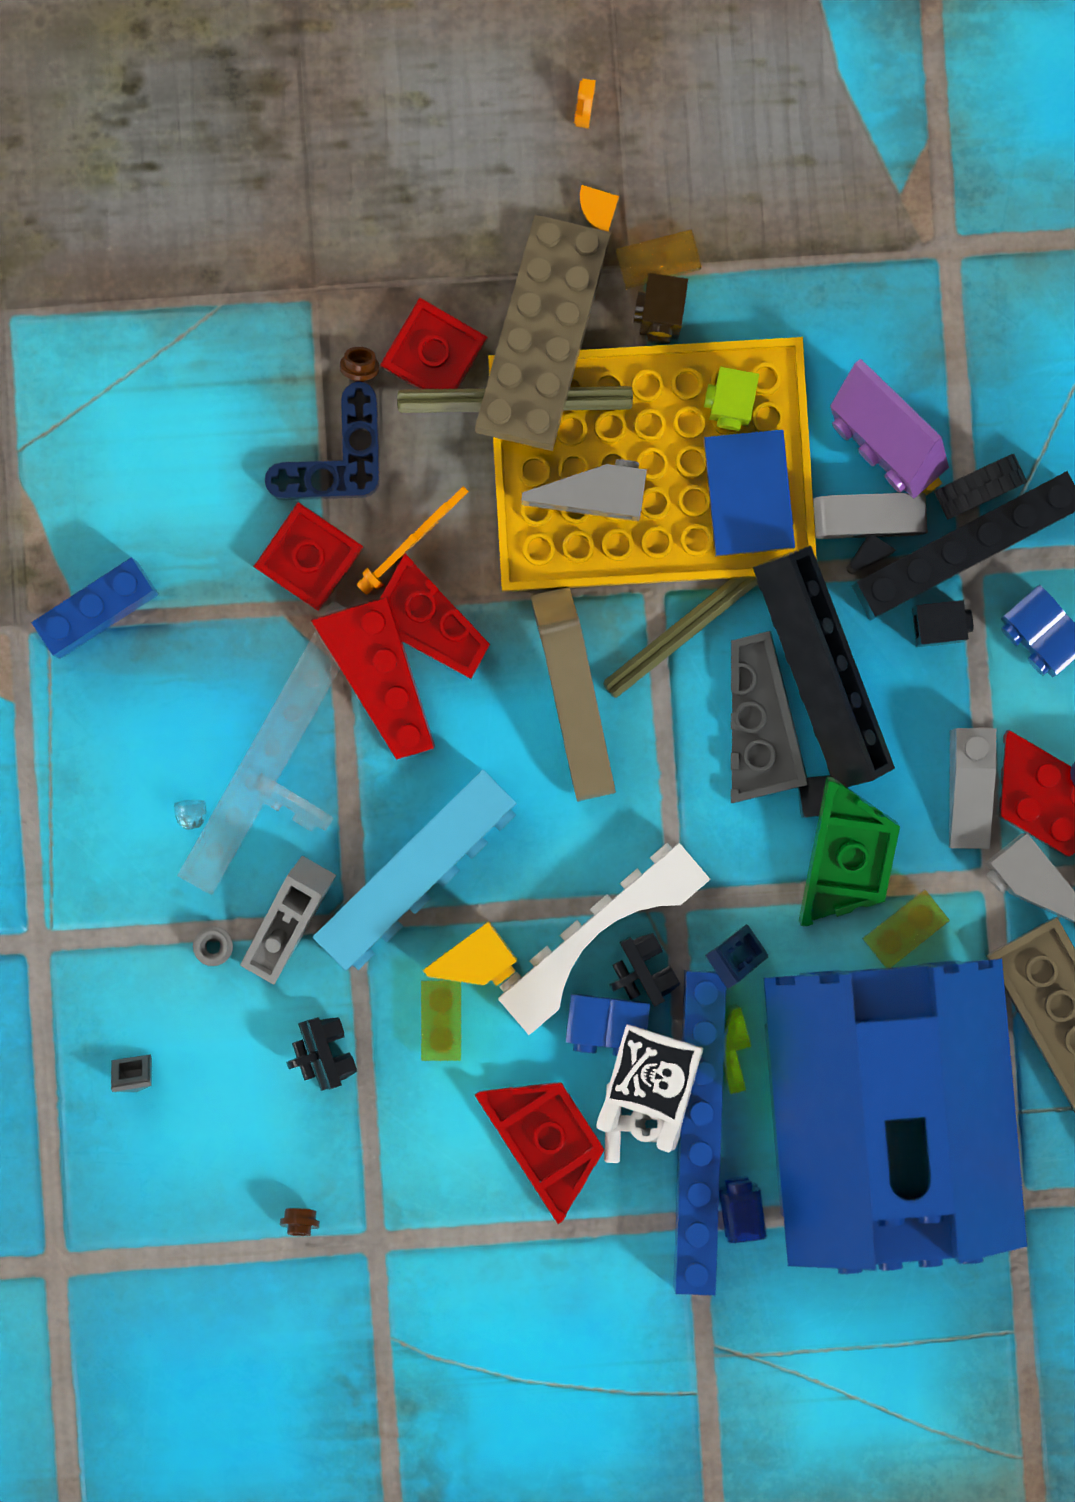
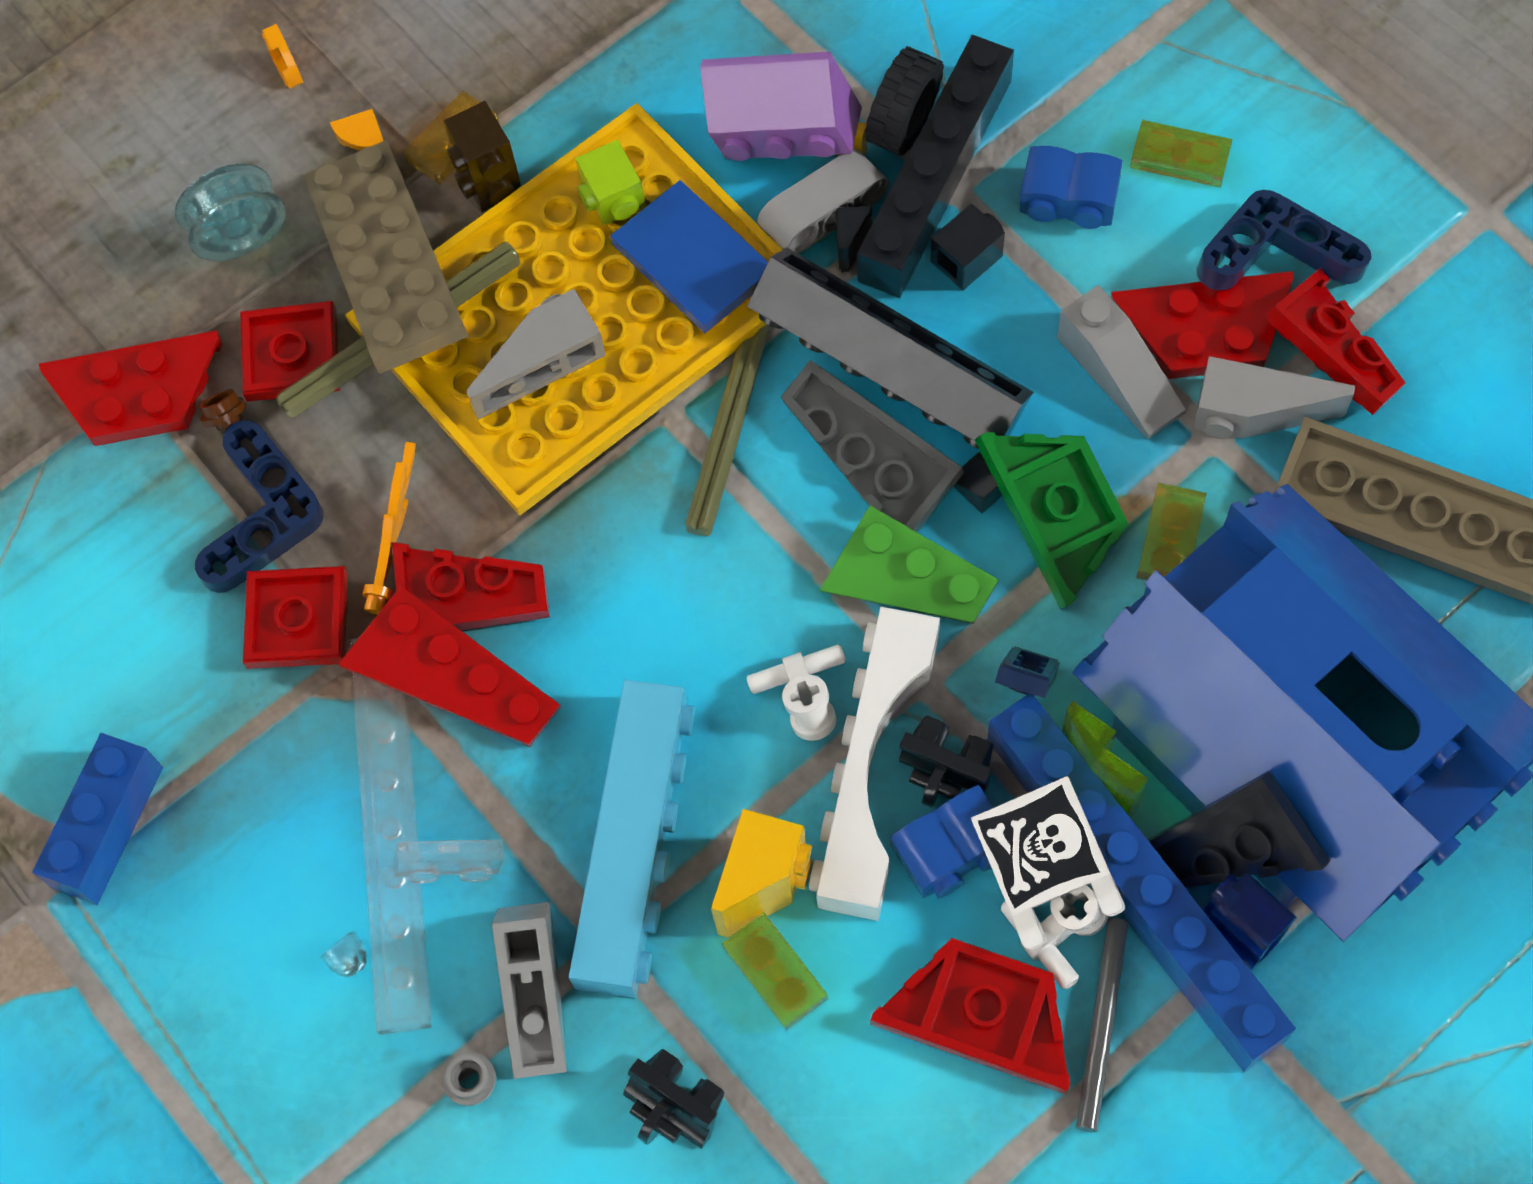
camera: 30 degrees left, 20 degrees down
(313, 297) = (135, 387): none -> red wing
(461, 219) = (230, 212): none -> clear light blue wheel
(573, 693) = (668, 542): dark tan beam -> none
(598, 838) = (804, 694): none -> white piece
(609, 1201) = (1102, 1025): none -> dark grey bar
(719, 825) = (907, 571): none -> bright green wing
(775, 1158) = (1238, 834): none -> black wing

